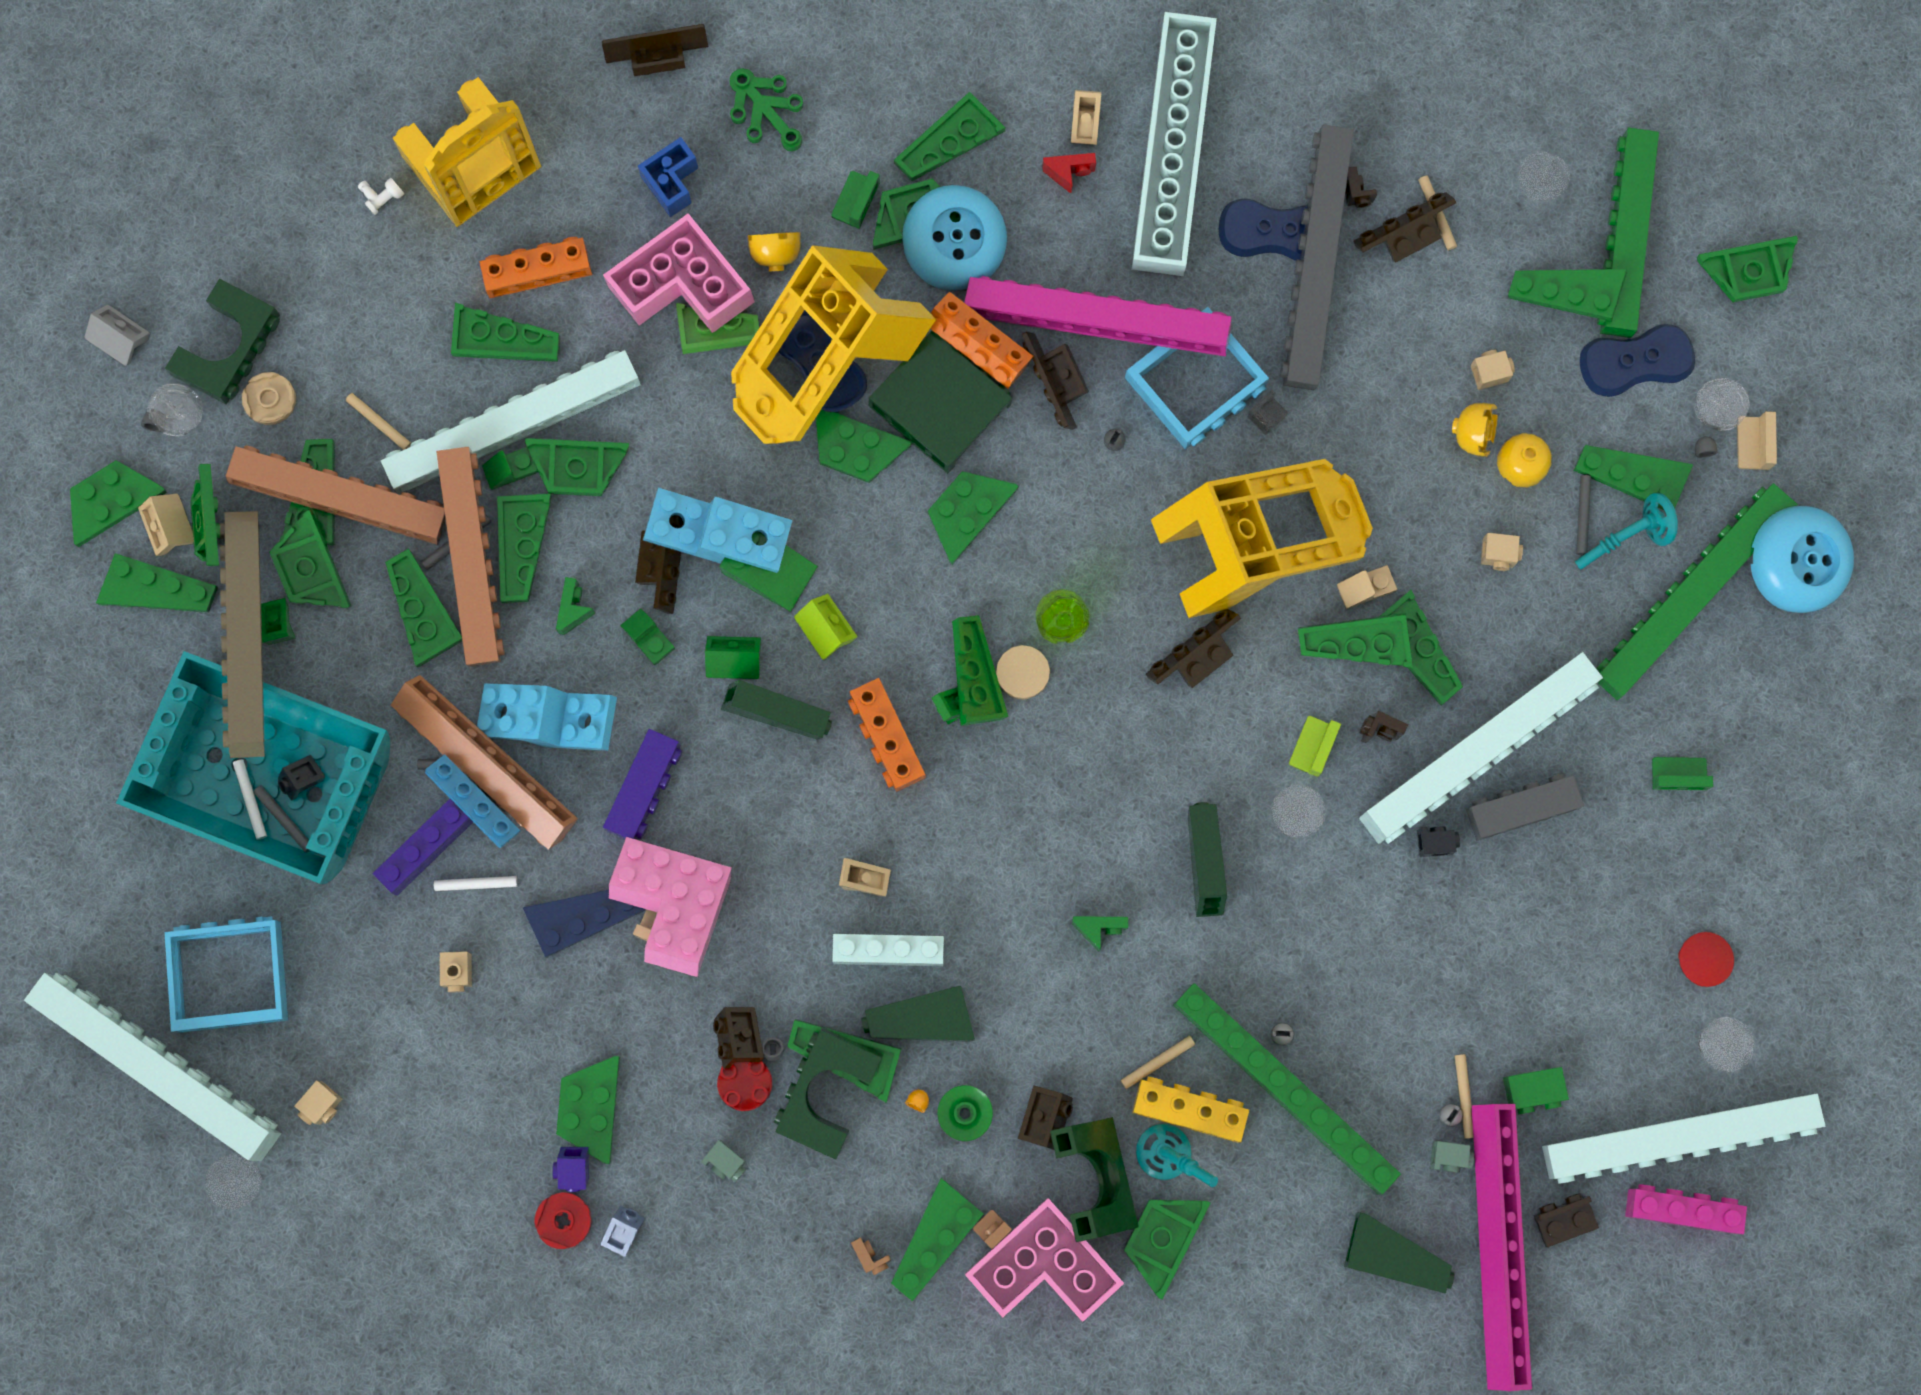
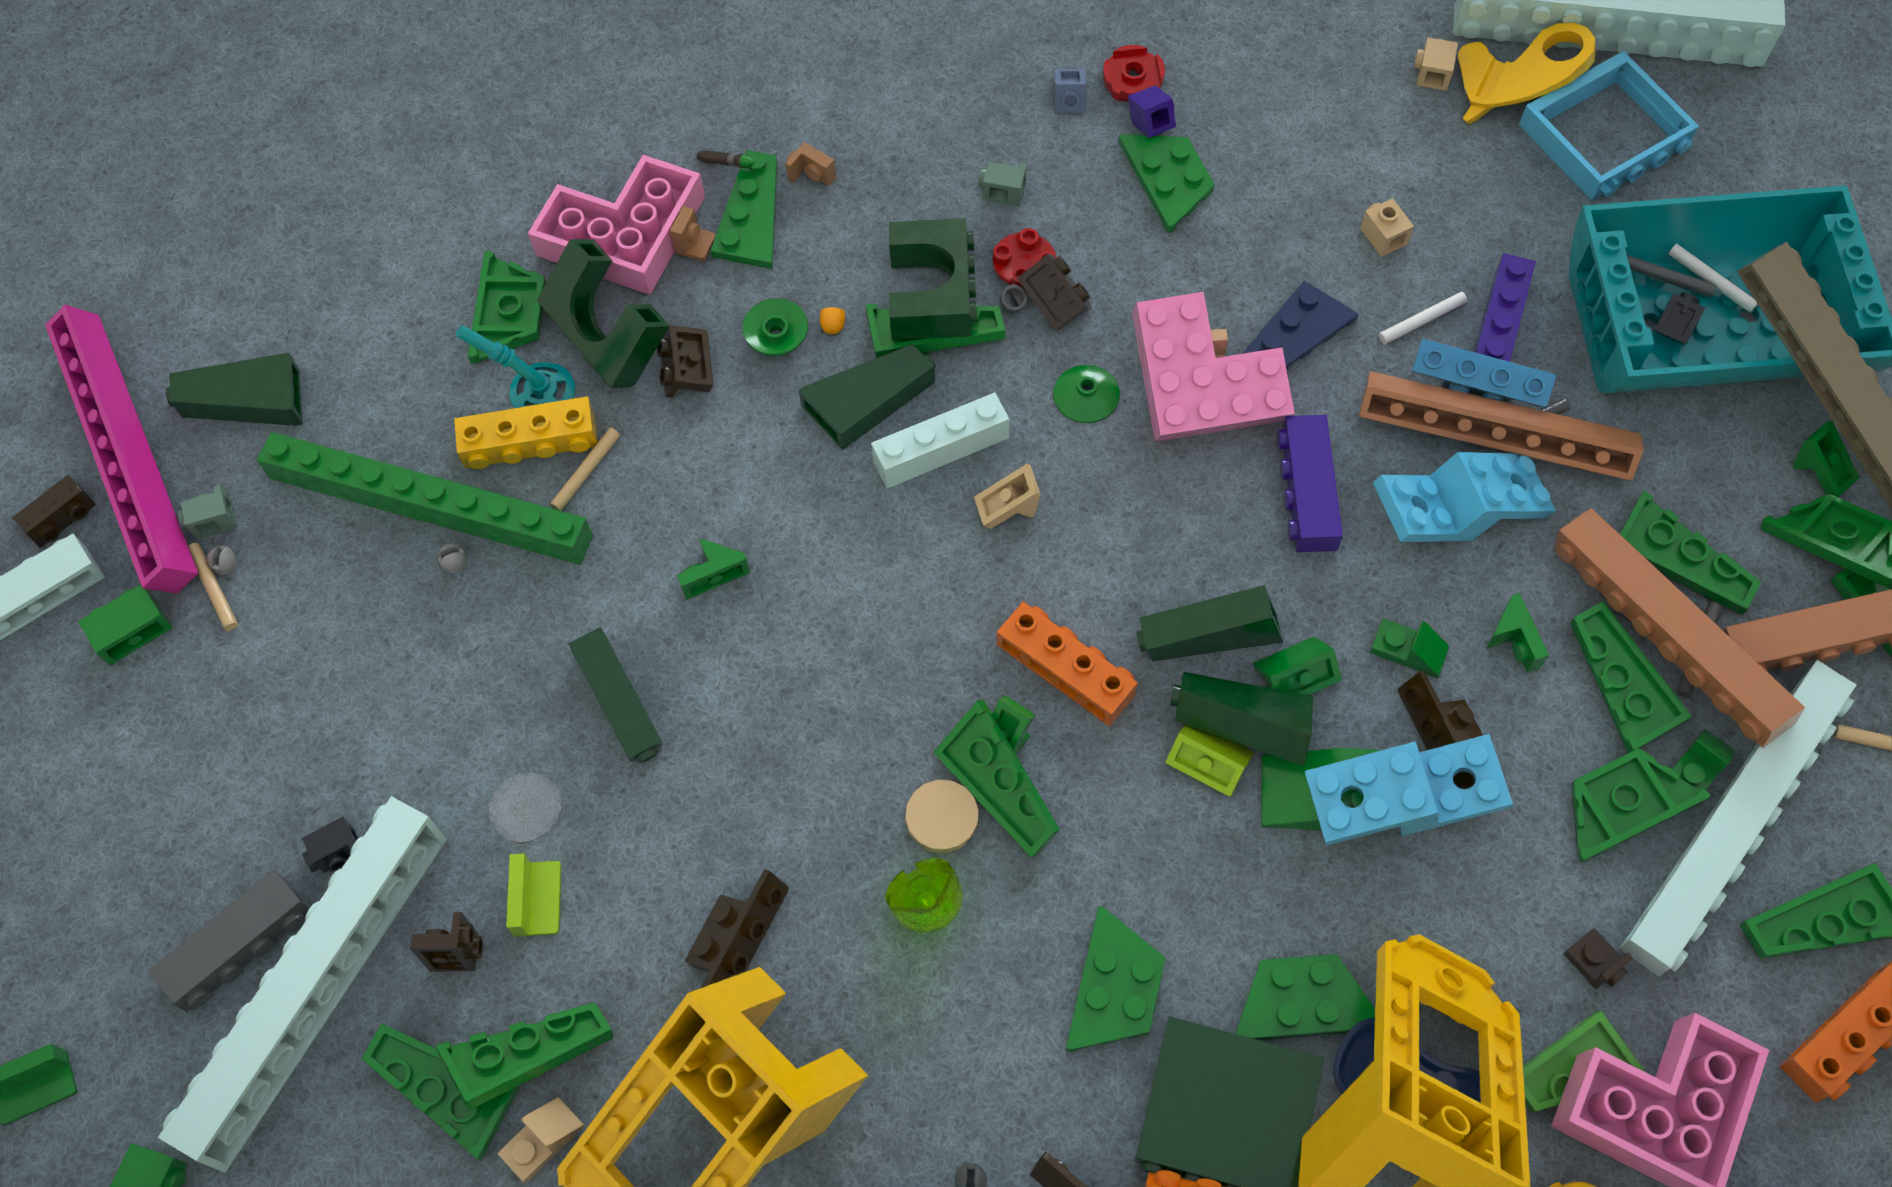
camera: 160 degrees right, 15 degrees down
(280, 1050) = (1532, 75): none -> yellow animal
(660, 381) = (1598, 960): none -> dark brown bracket
(765, 958) = (1086, 405): none -> green dish
(787, 635) = (1247, 714): none -> dark green slope
(938, 1303) = (728, 159): none -> dark brown piece

